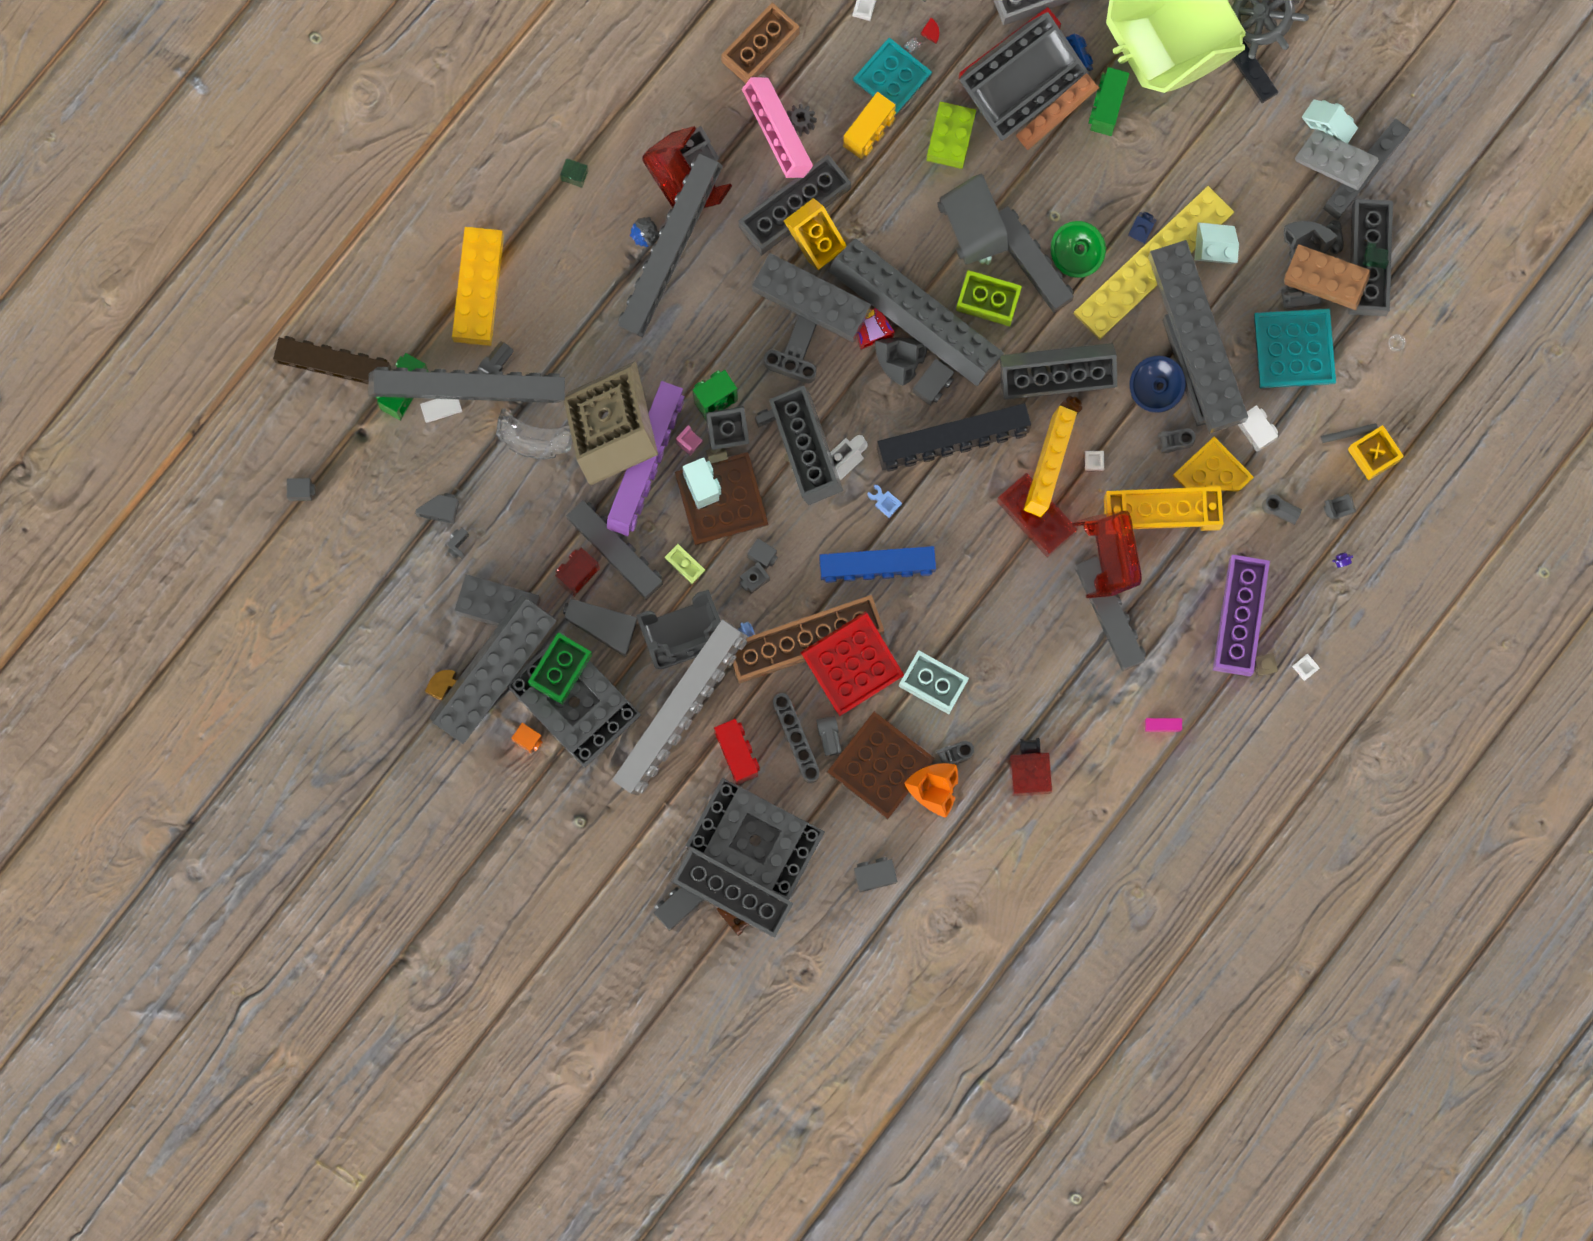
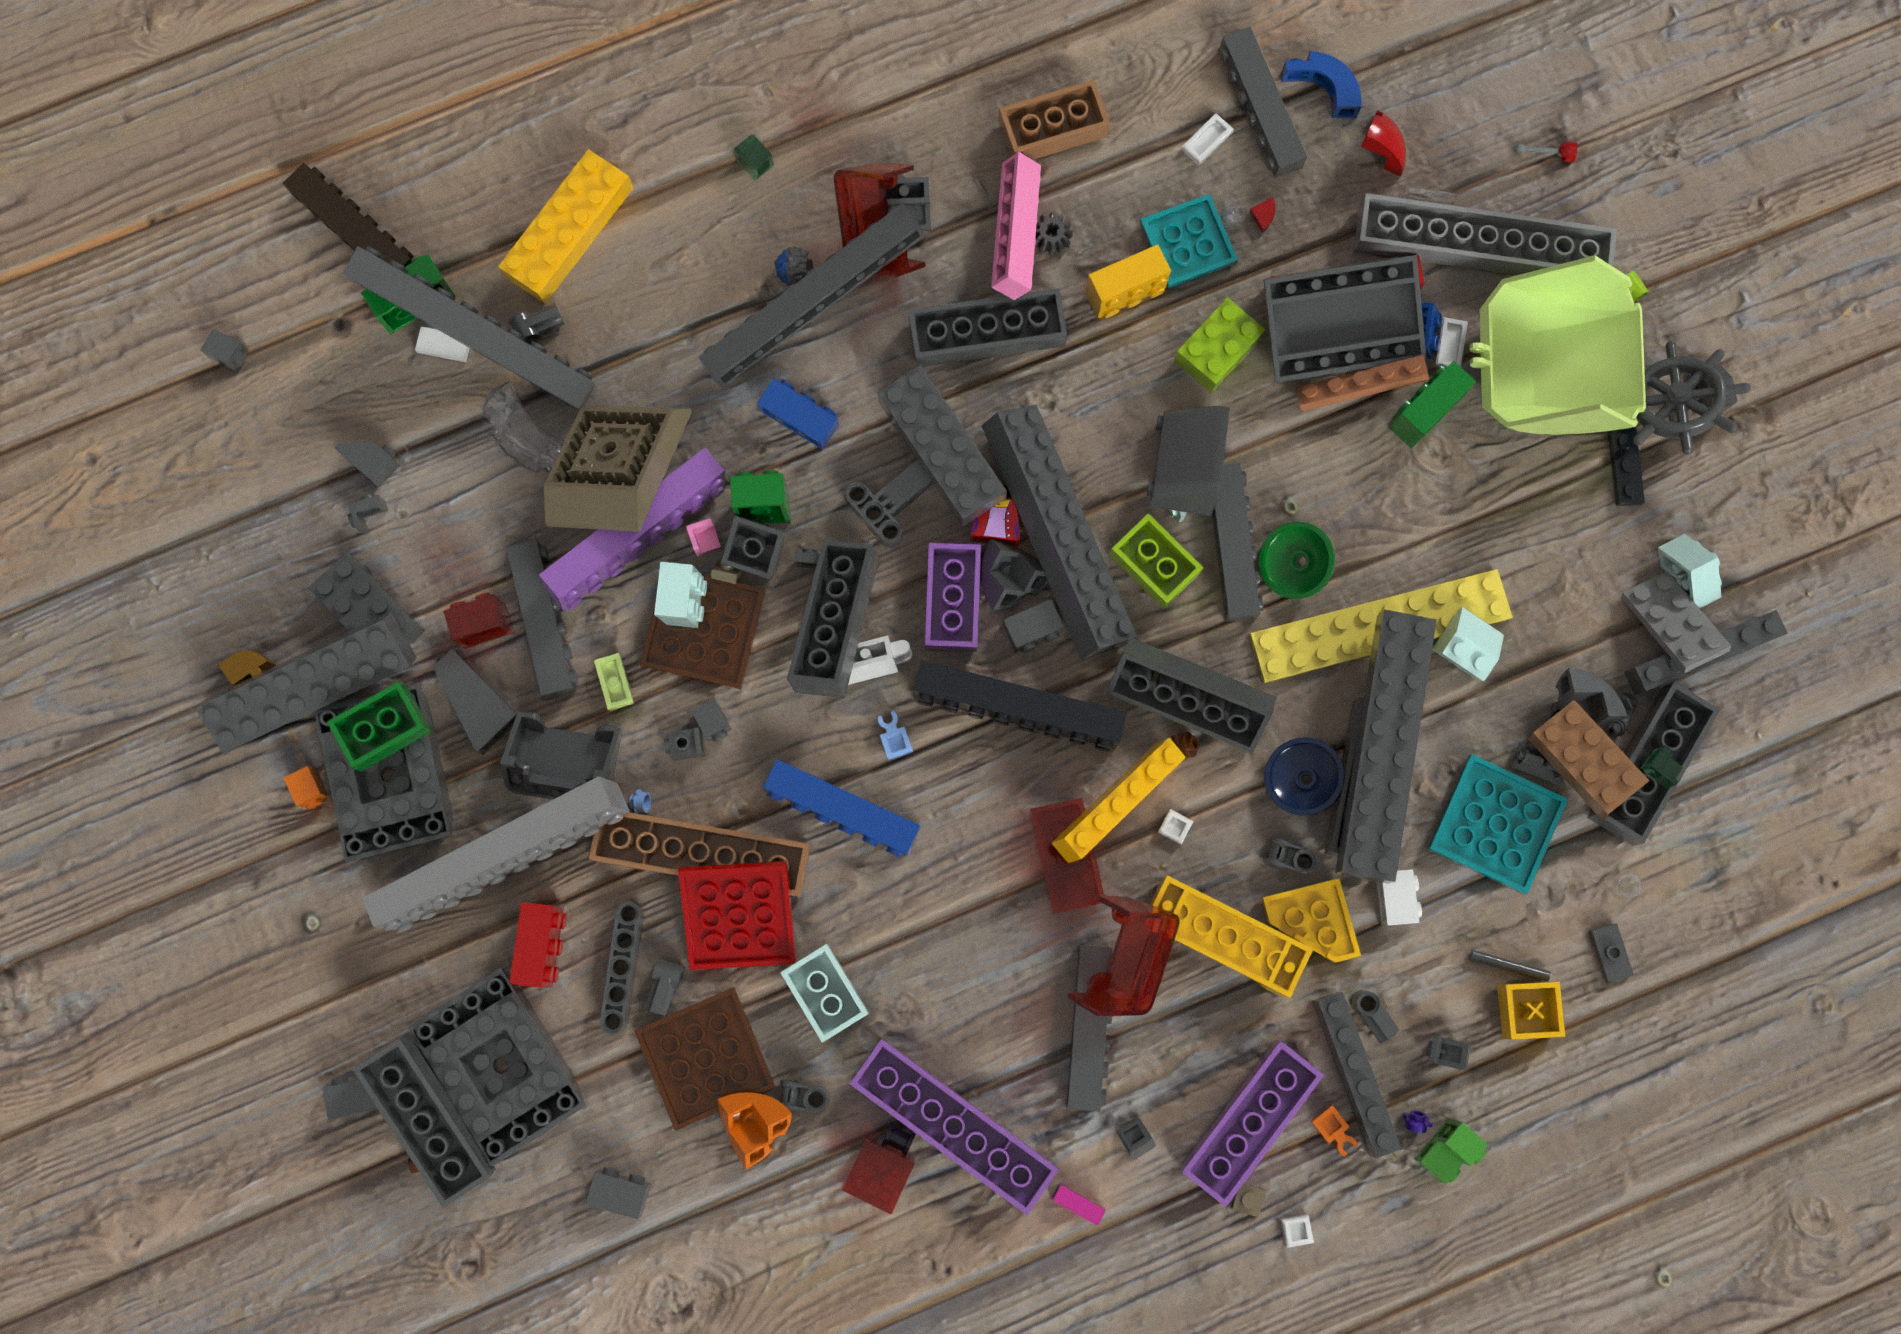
camera: 30 degrees right, 0 degrees up
(703, 326) = (798, 413): none -> blue brick
(815, 233) = (990, 372): yellow brick -> none
(872, 391) = (952, 597): none -> medium lavender brick
(1060, 718) = (954, 1126): none -> medium lavender brick
(1099, 52) = (1451, 342): none -> white tile
(1142, 226) = (1390, 575): dark blue bracket -> none
(1177, 666) = (1136, 1138): none -> dark grey slope
(1289, 551) = (1356, 1075): none -> dark grey brick
(1293, 591) = (1332, 1127): none -> orange plate
(1371, 565) = (1450, 1149): none -> bright green brick
(1407, 390) = (1611, 952): none -> dark grey plate

